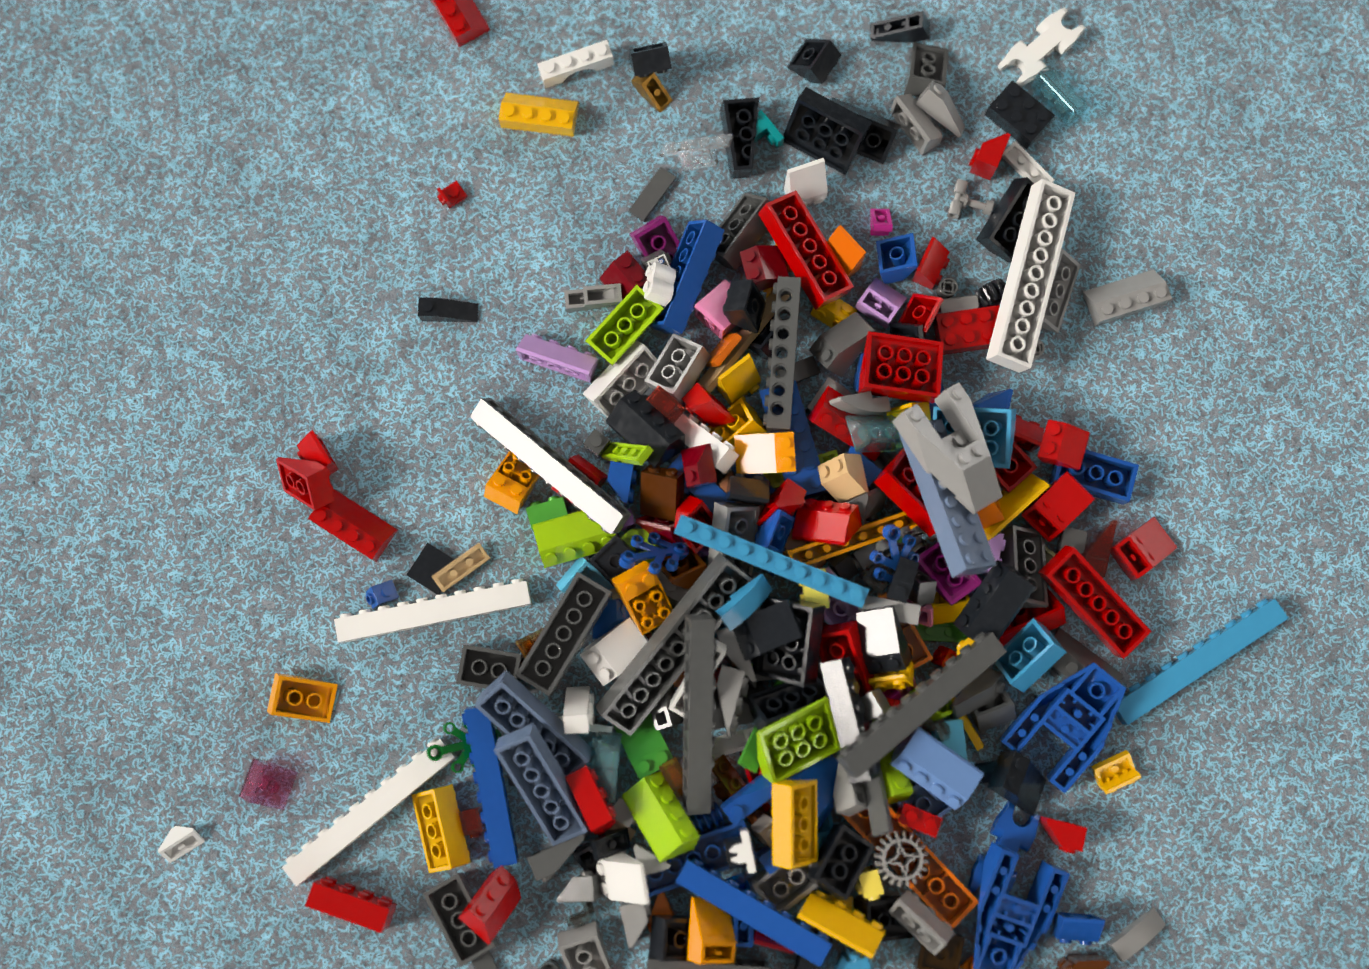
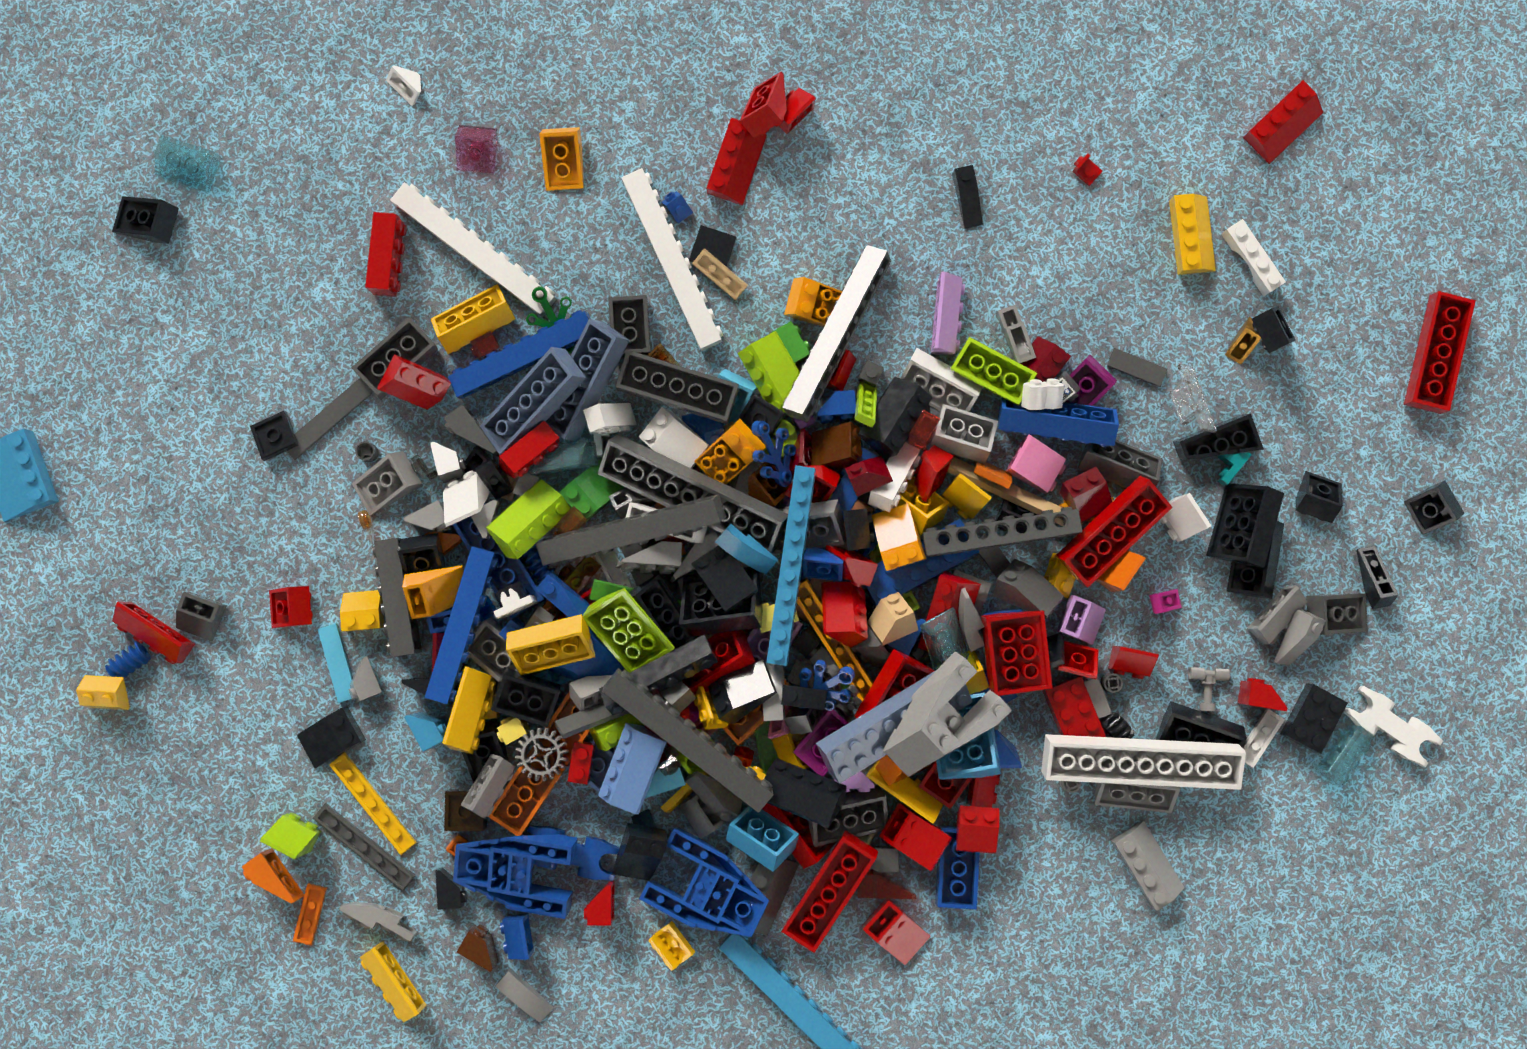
camera: 75 degrees right, 5 degrees up
(744, 305) = (1041, 484): black slope -> none
(896, 257) = (1129, 624): blue slope -> none

